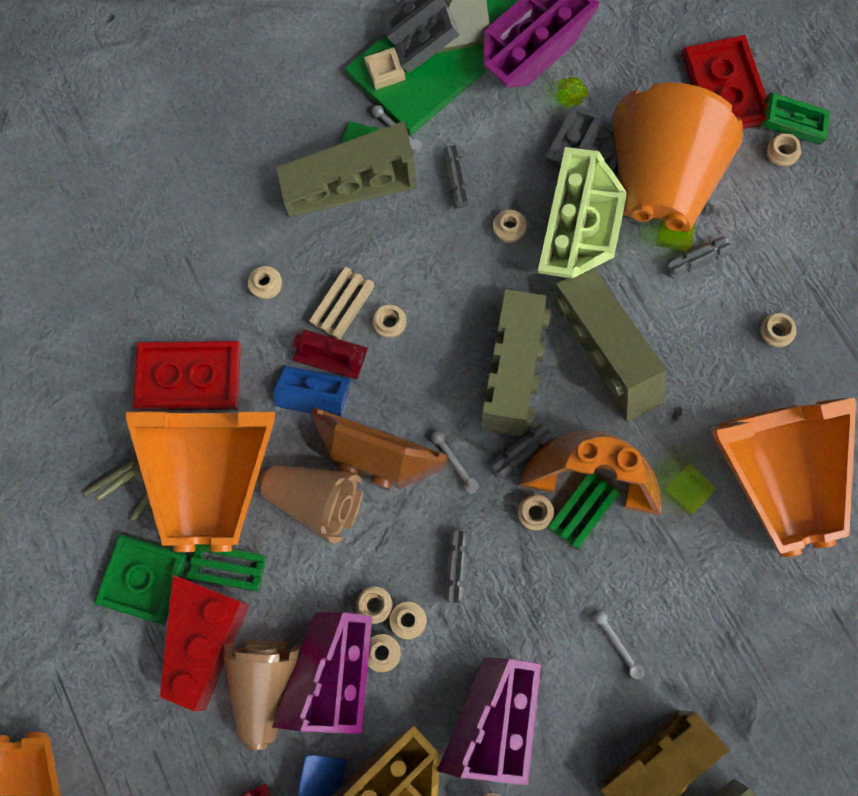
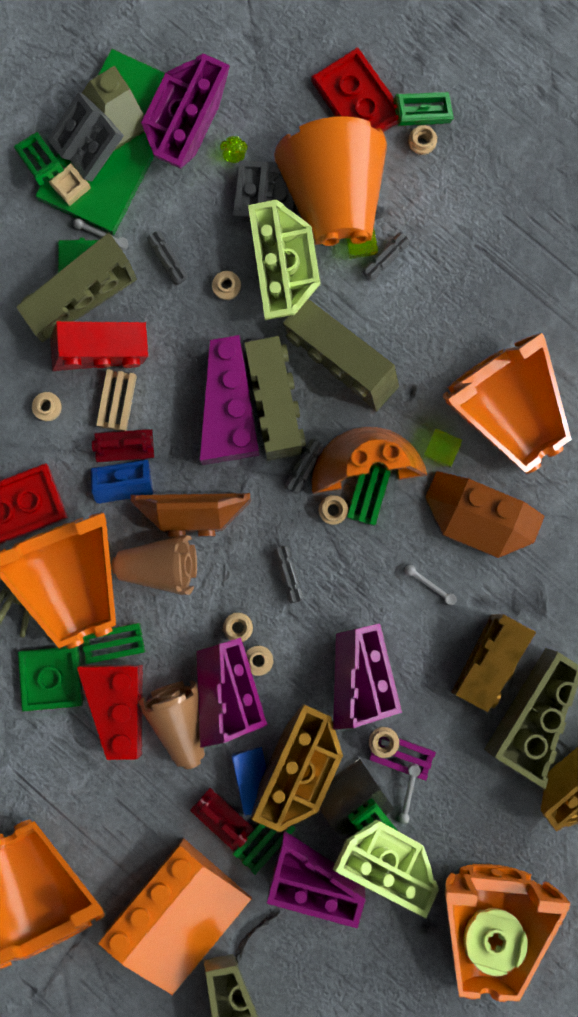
camera: 30 degrees left, 10 degrees up
(346, 236) = (98, 345): none -> red wedge
(366, 44) = (46, 169): none -> green tile
(384, 313) = (159, 392): tan plate -> none
(413, 631) = (258, 628): tan plate -> none
(457, 360) = (228, 414): none -> magenta wedge
(471, 485) = (275, 507): light grey hinge -> none
(710, 586) = (481, 515): none -> dark orange wedge
(782, 322) = (471, 287): tan plate -> none

